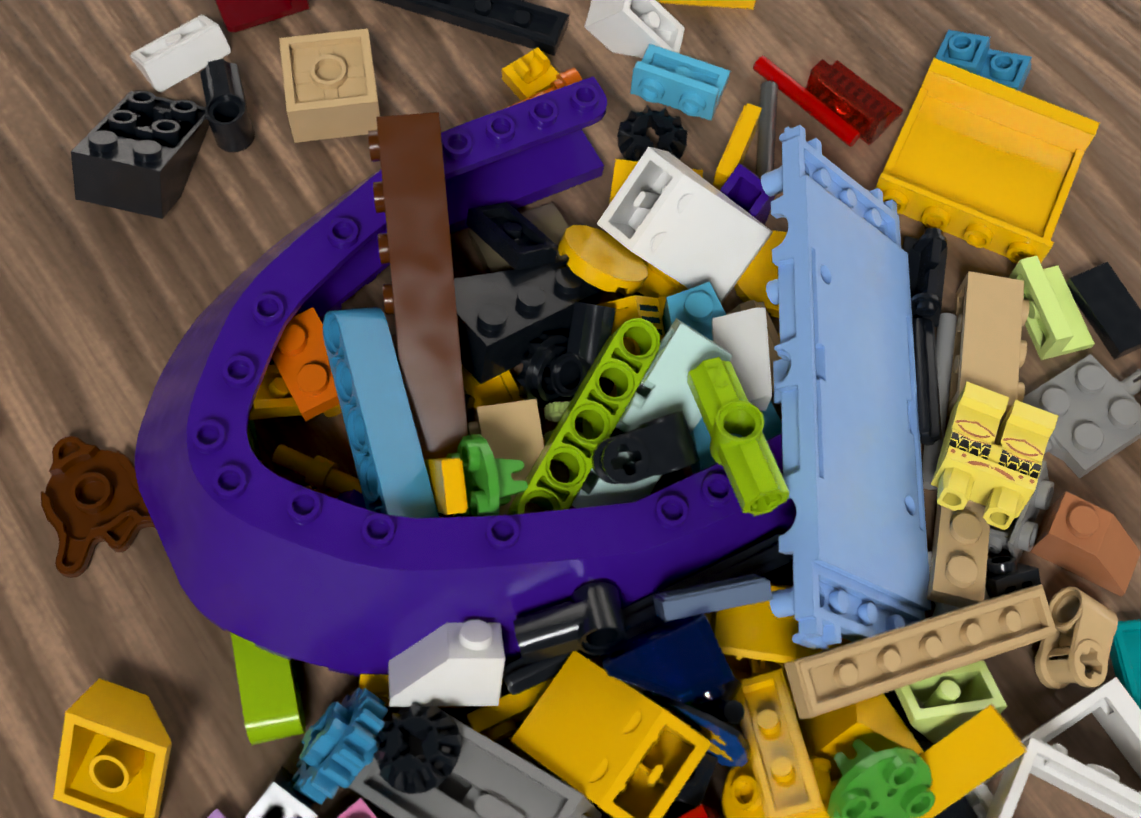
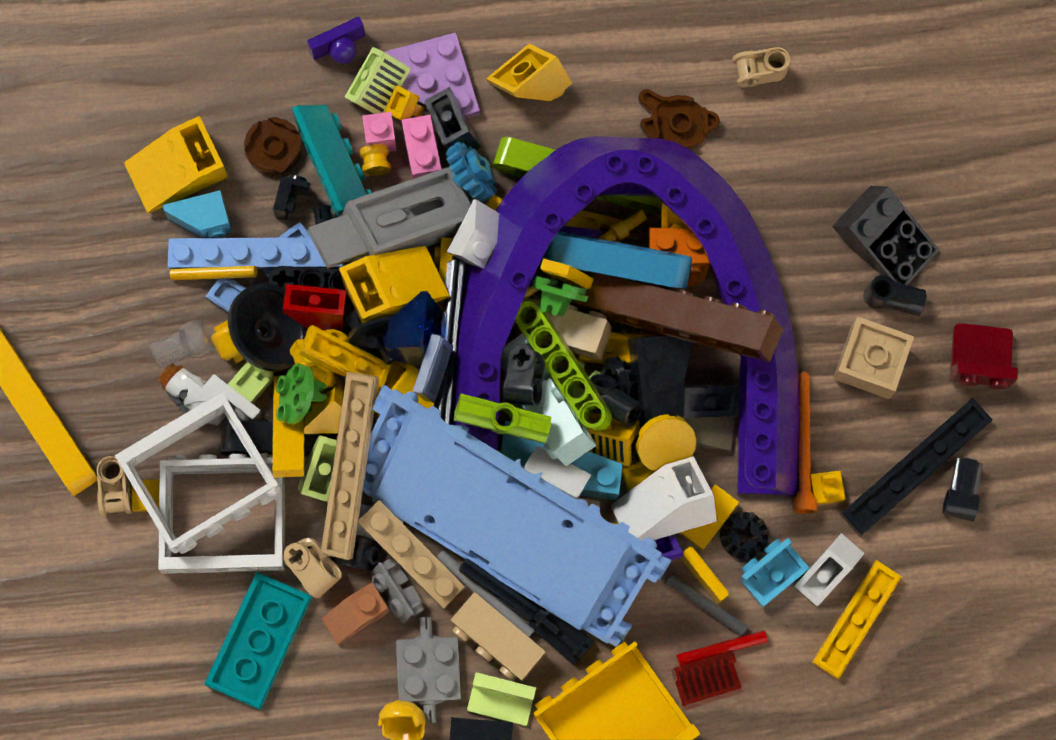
camera: 120 degrees right, 10 degrees up
(181, 52) = (954, 290): white slope -> none
(440, 749) = (438, 208): black gear -> none
(586, 623) = (457, 302): black piece -> none
(989, 473) = (426, 569): light yellow hips -> none

